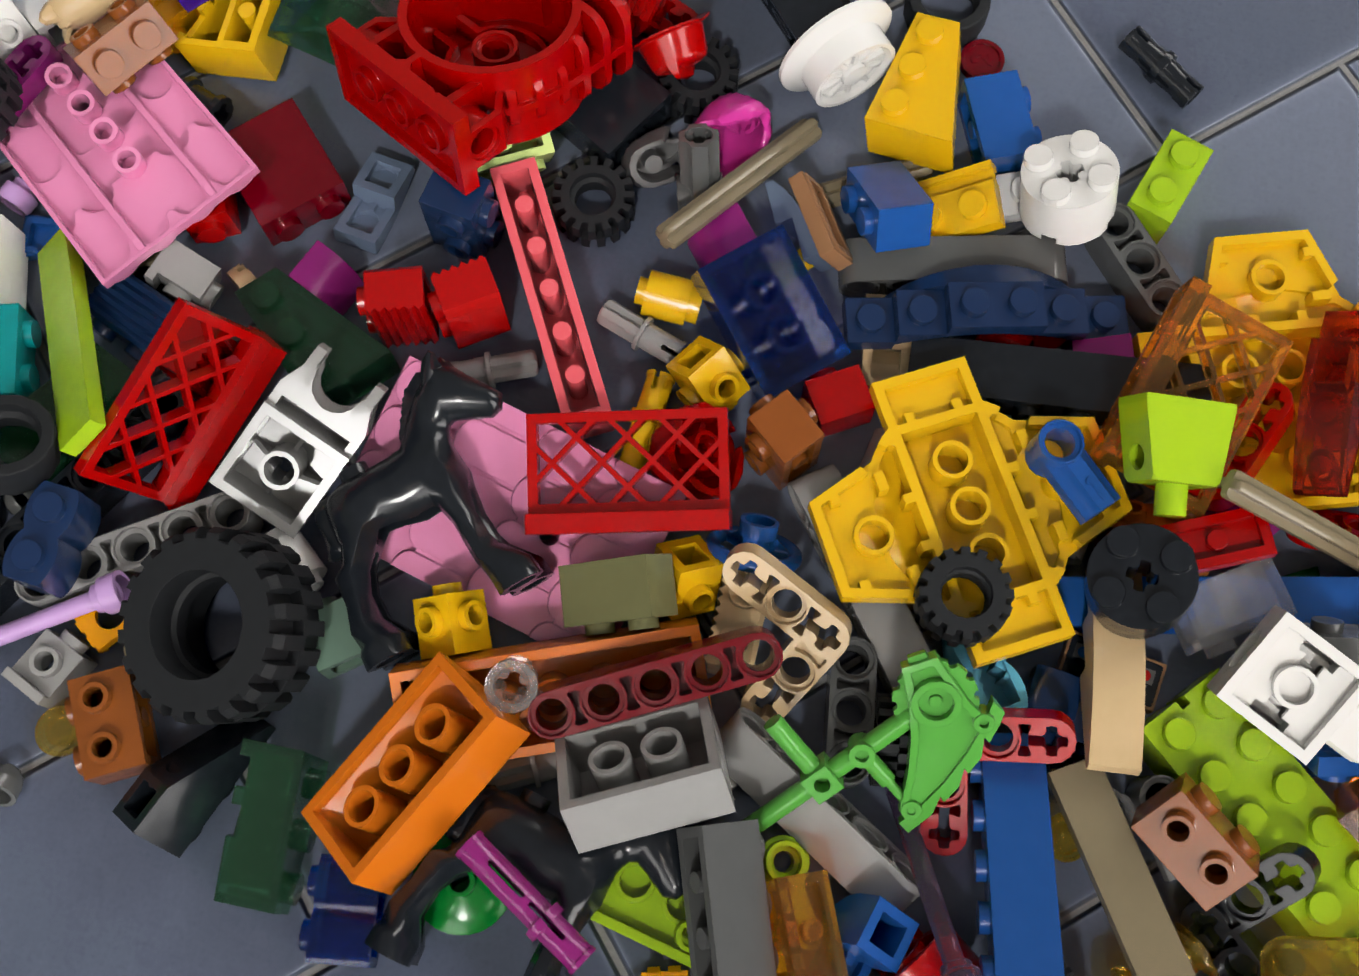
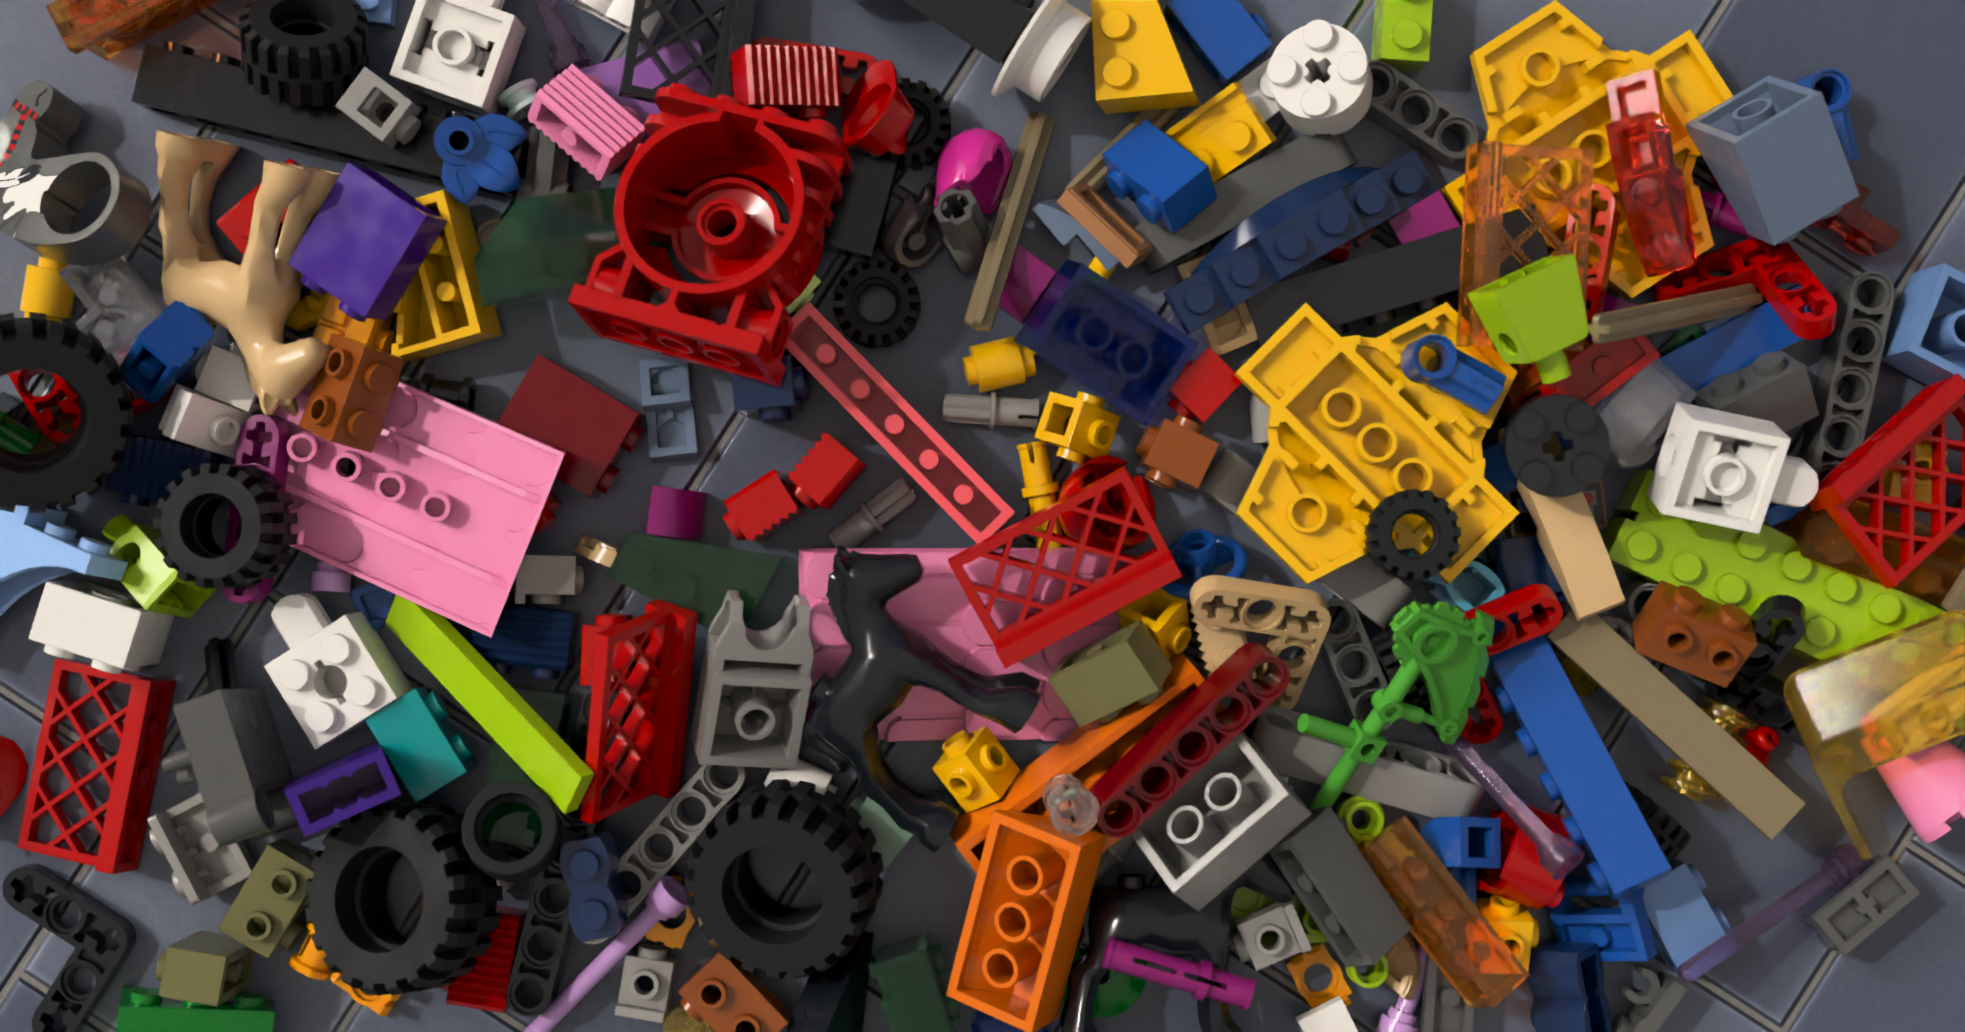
camera: 30 degrees left, 15 degrees up
(658, 930) = (1276, 917): none -> light grey brick

